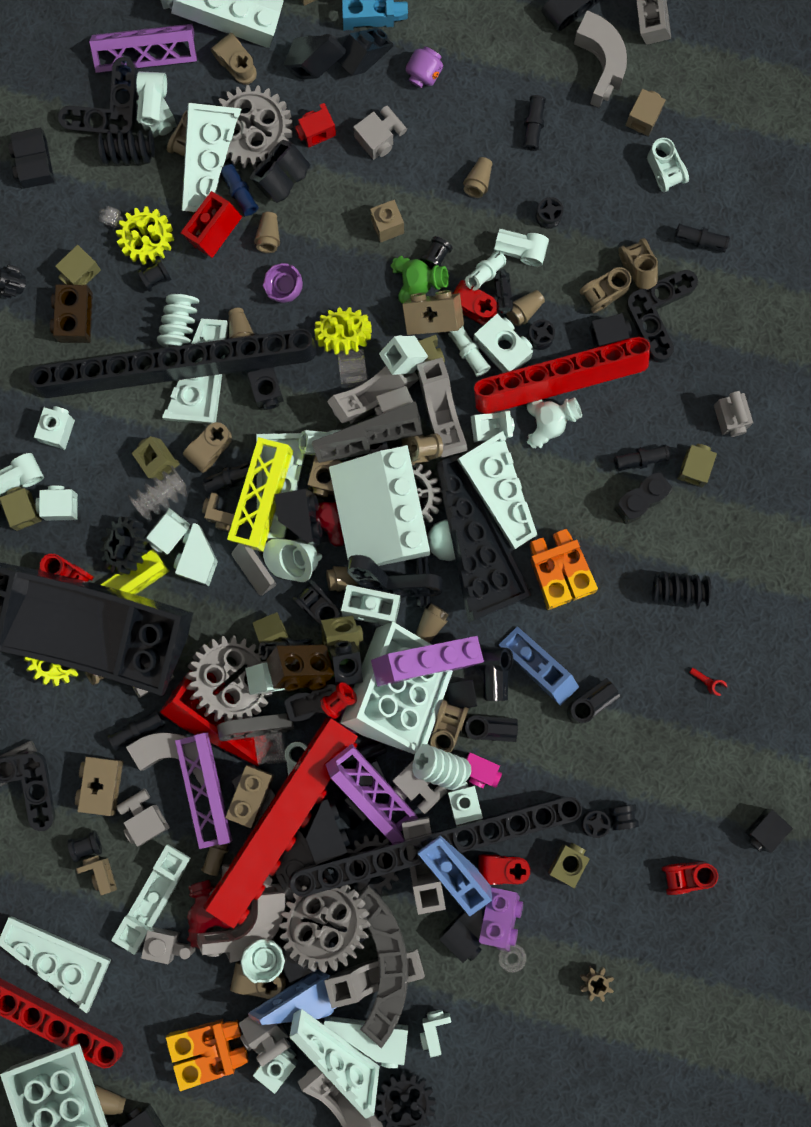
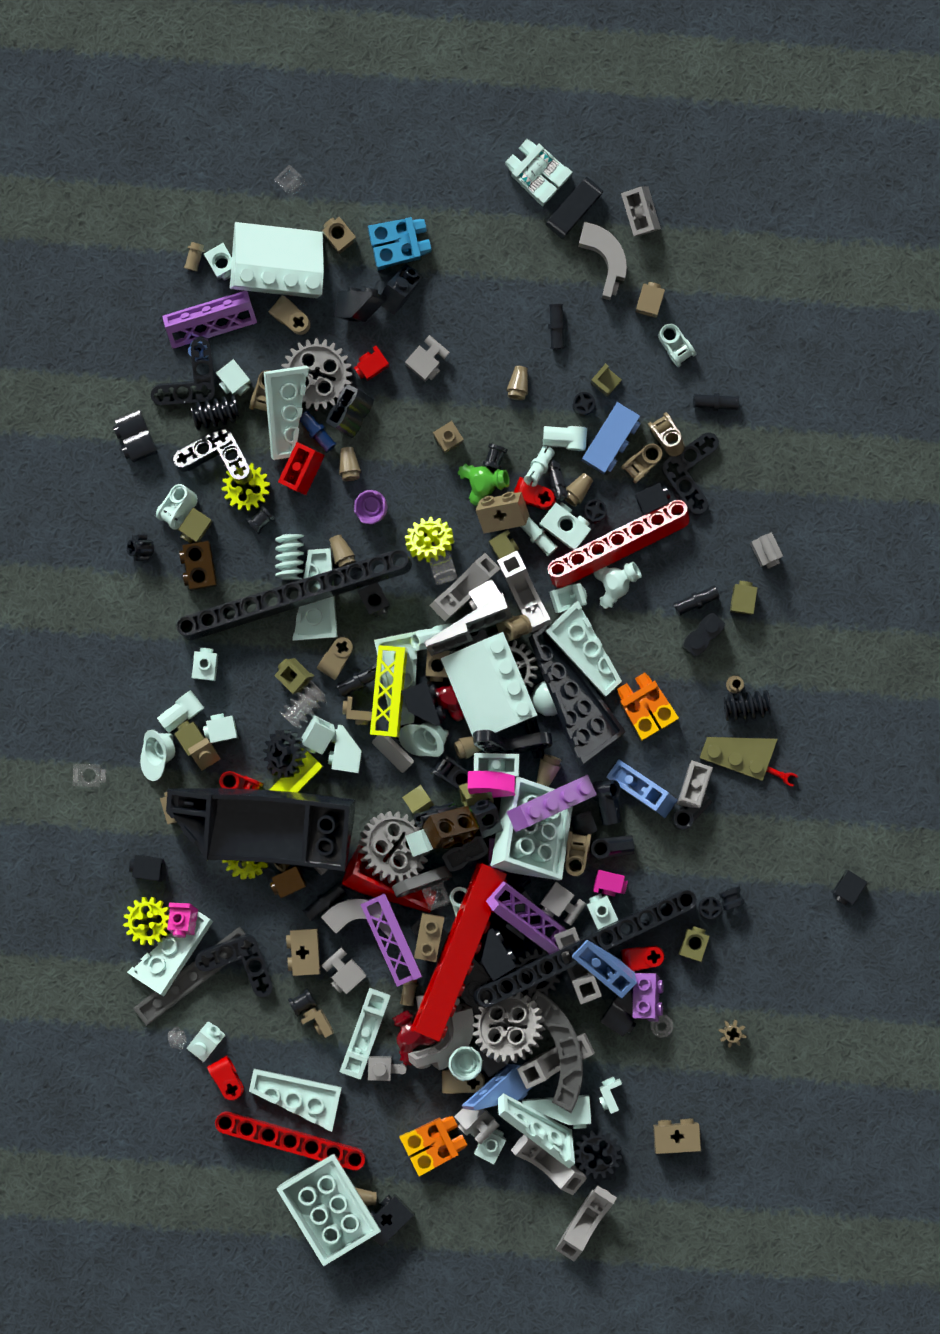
camera: 15 degrees left, 5 degrees up
(29, 528) = (204, 754): none -> dark tan bracket
(61, 240) = (178, 505): none -> light aqua piece
(95, 697) = (288, 882): none -> dark brown brick
(110, 216) = (213, 475): clear plate -> none
(130, 184) = (221, 449): none -> beam
(151, 90) = (229, 363): light aqua piece -> none
(338, 706) = (495, 846): red bush -> none
(367, 624) = (497, 783): none -> dark pink slope
(403, 354) = (484, 554): light aqua brick -> none
(424, 67) = (454, 294): medium lavender head -> none
(440, 767) = (577, 886): light aqua piece -> none
(517, 1111) = (666, 1144): none -> dark tan brick
(574, 256) = (611, 438): none -> medium blue brick
(578, 191) = (605, 380): none -> olive panel
(602, 672) = (694, 785): none -> light grey slope
(662, 647) = (742, 755): none -> olive wing
(666, 566) = (730, 687): none -> dark tan pin
(687, 877) = (790, 936): red piece -> none

